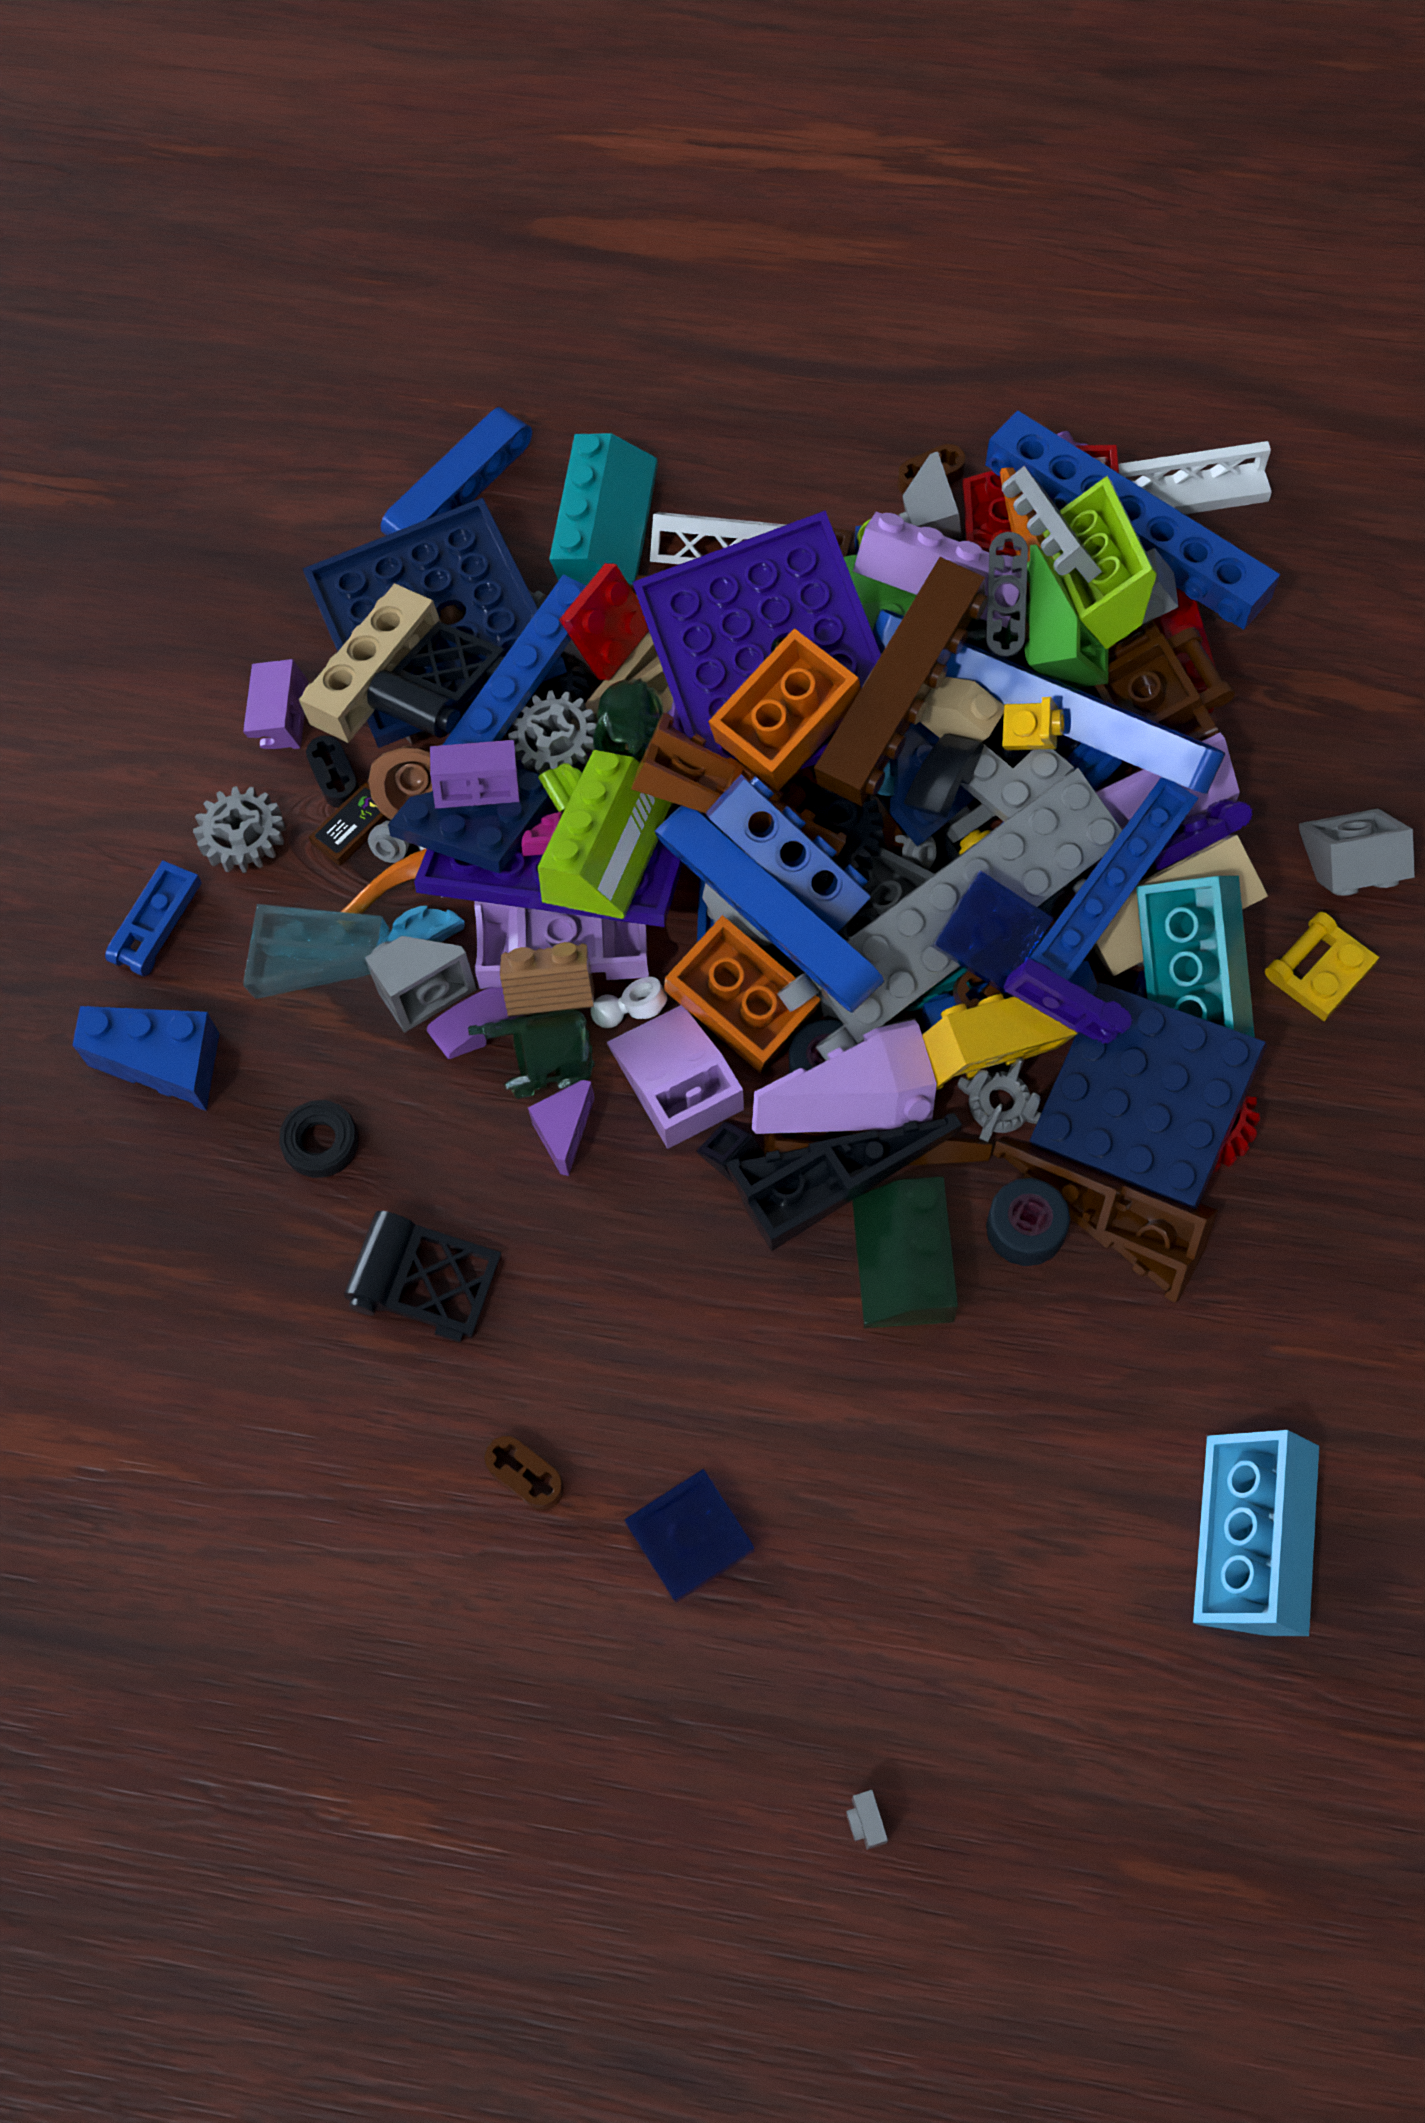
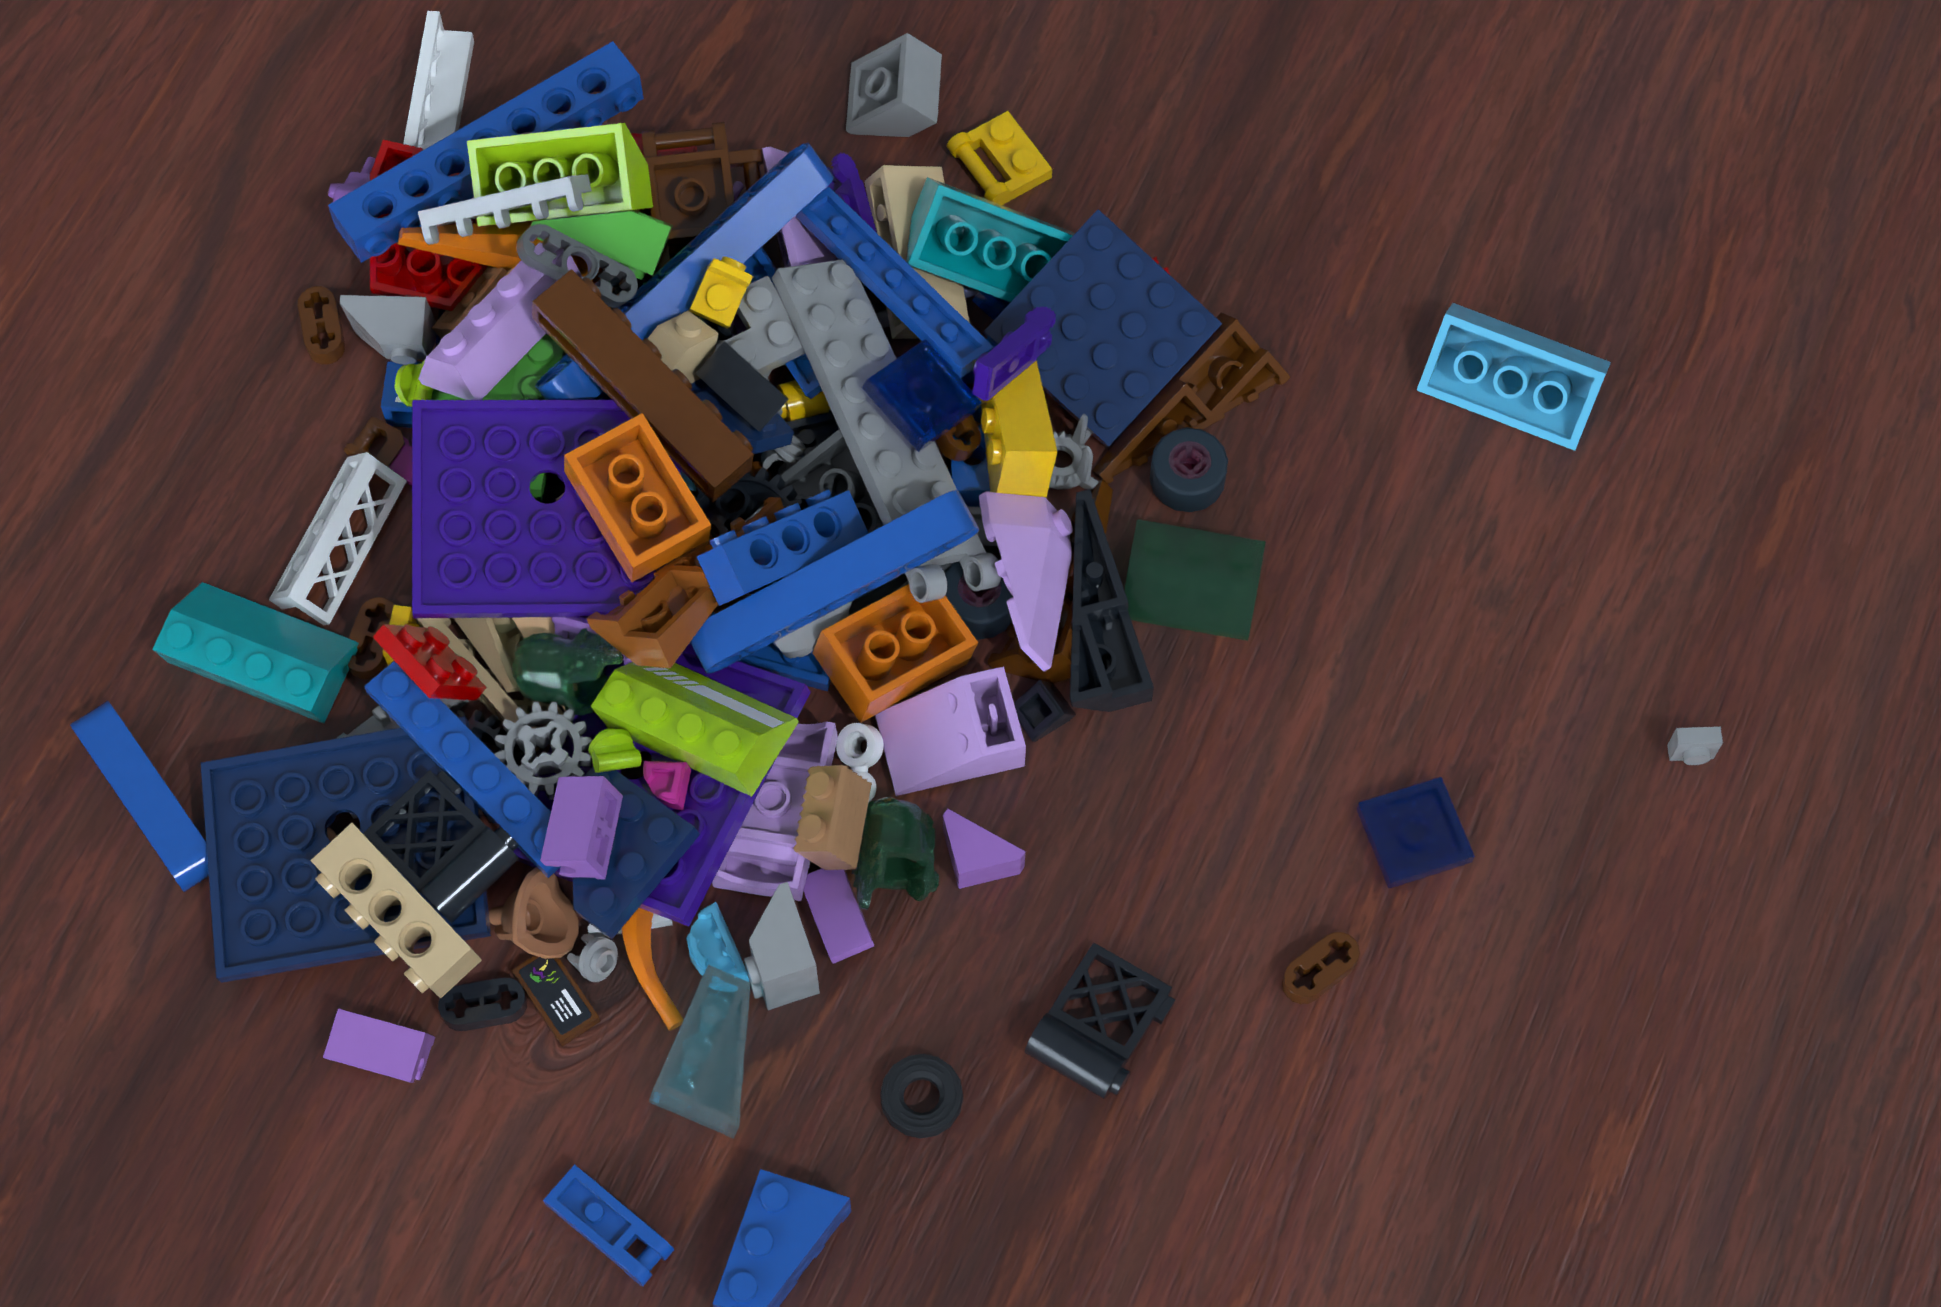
camera: 80 degrees left, 0 degrees up
(244, 825) = (510, 1109): light grey gear -> none

